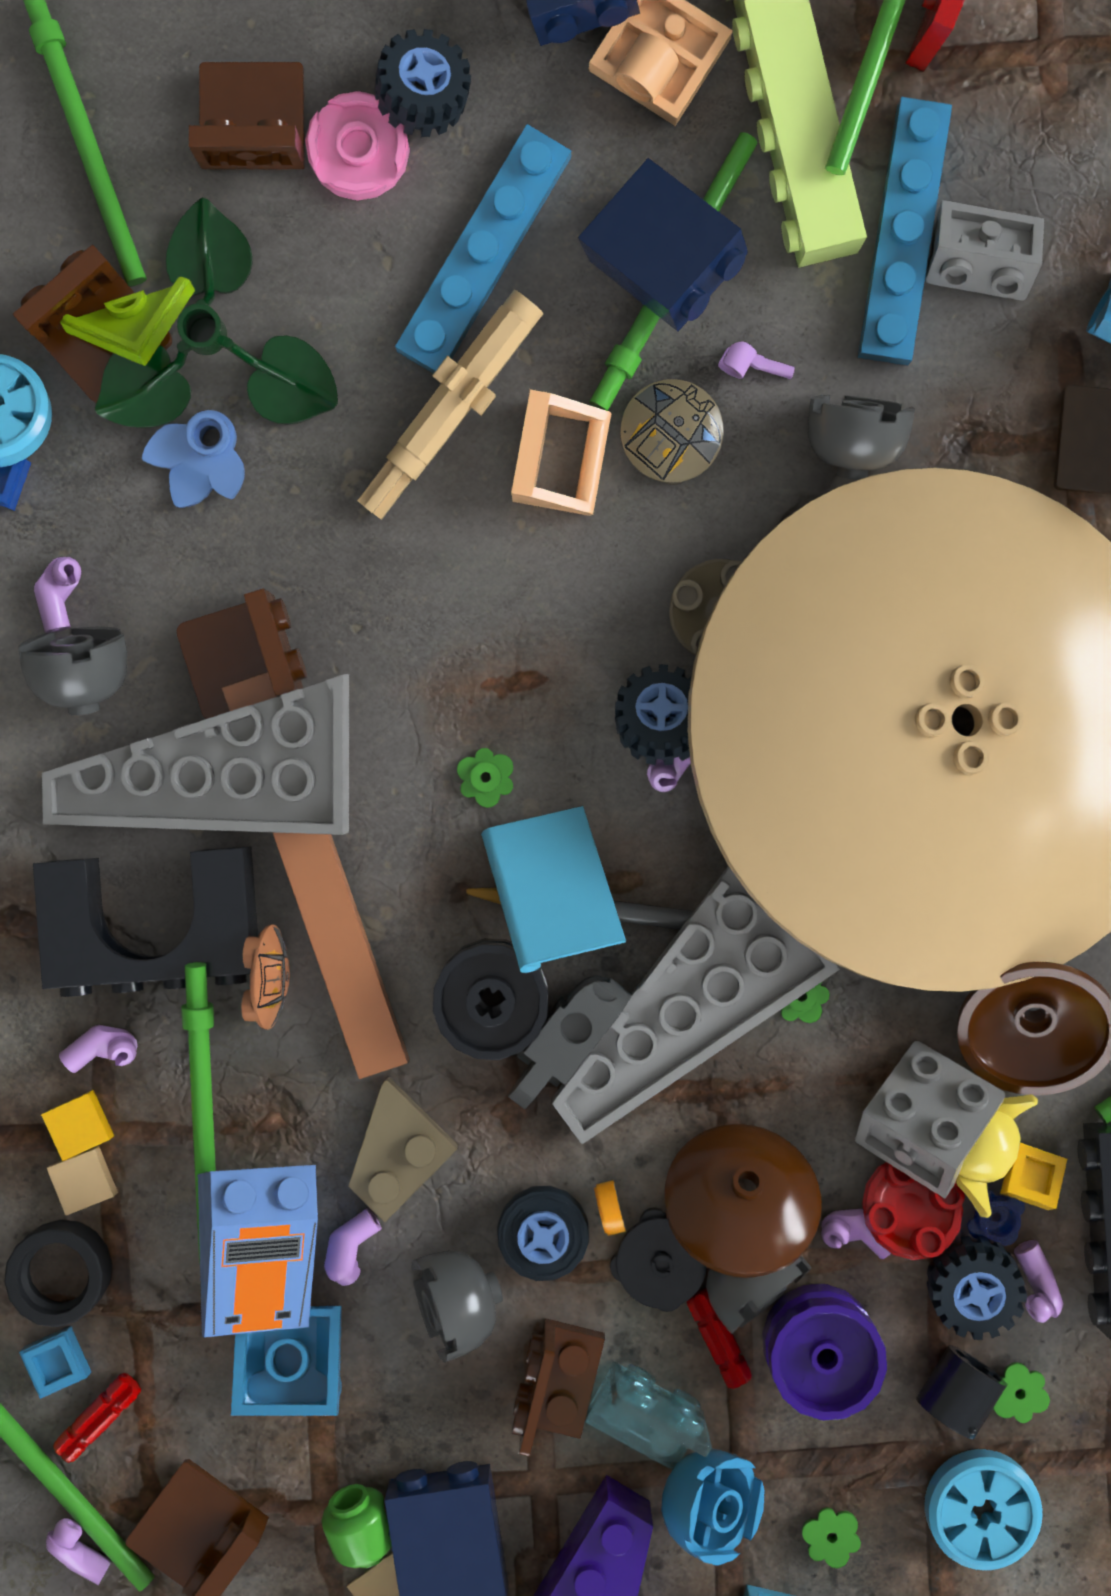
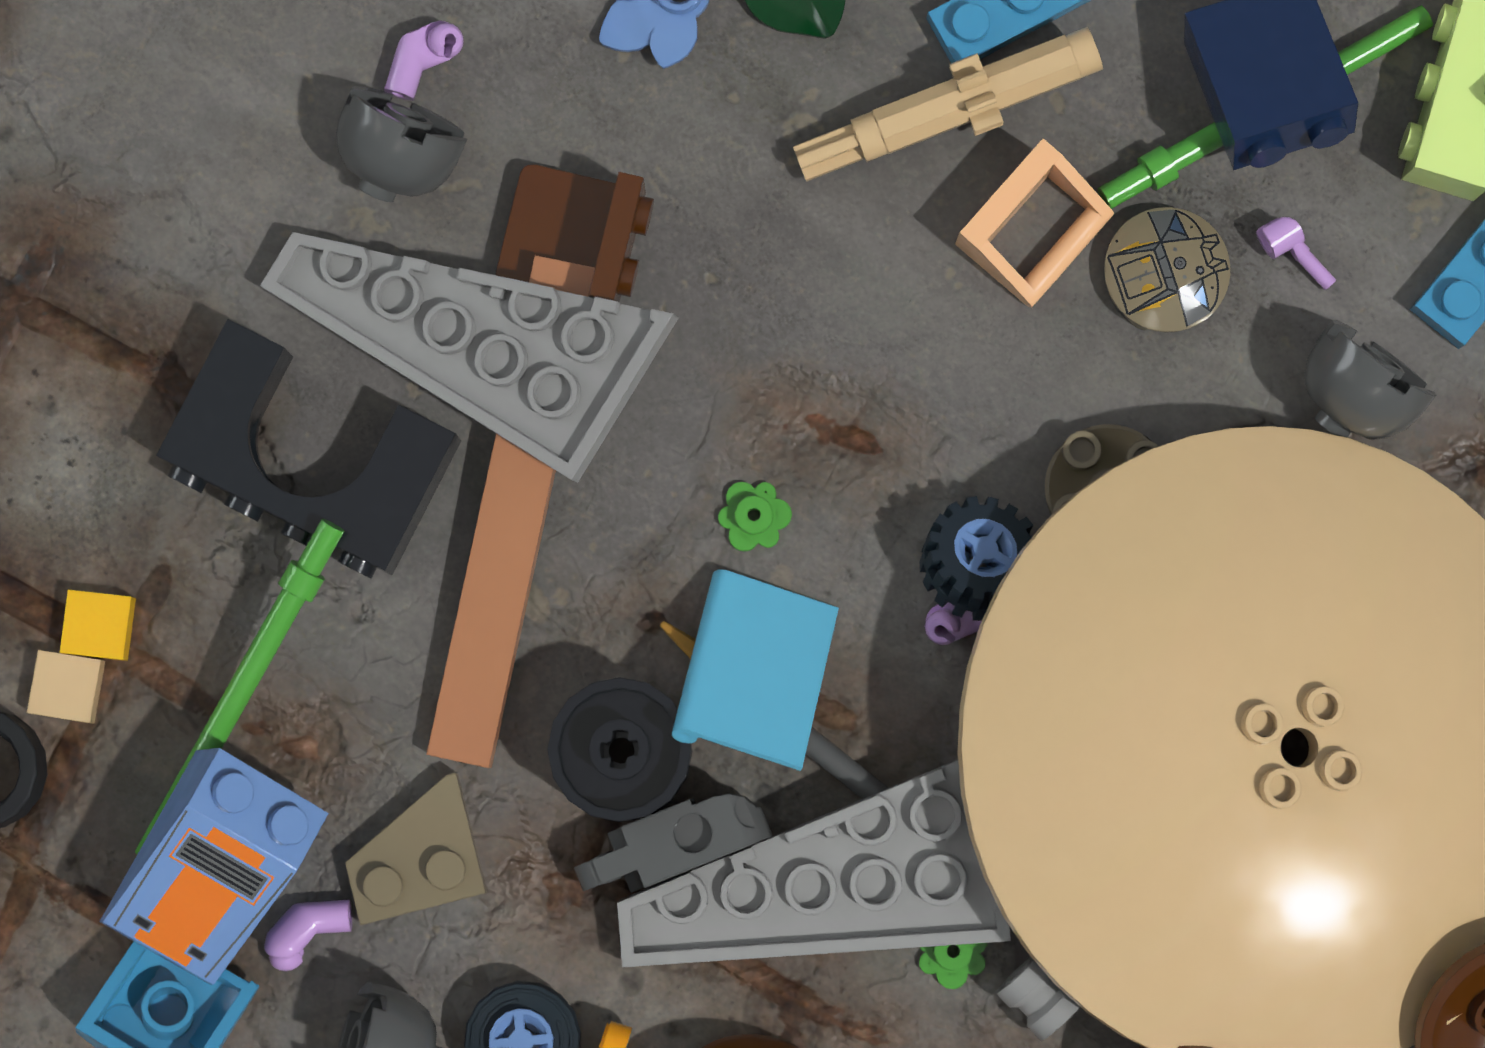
camera: 30 degrees right, 5 degrees down
(101, 1042) = (175, 550): lavender arm -> none
(268, 977) = (400, 586): nougat dish -> none
(888, 999) = (1037, 998): none -> light grey wheel

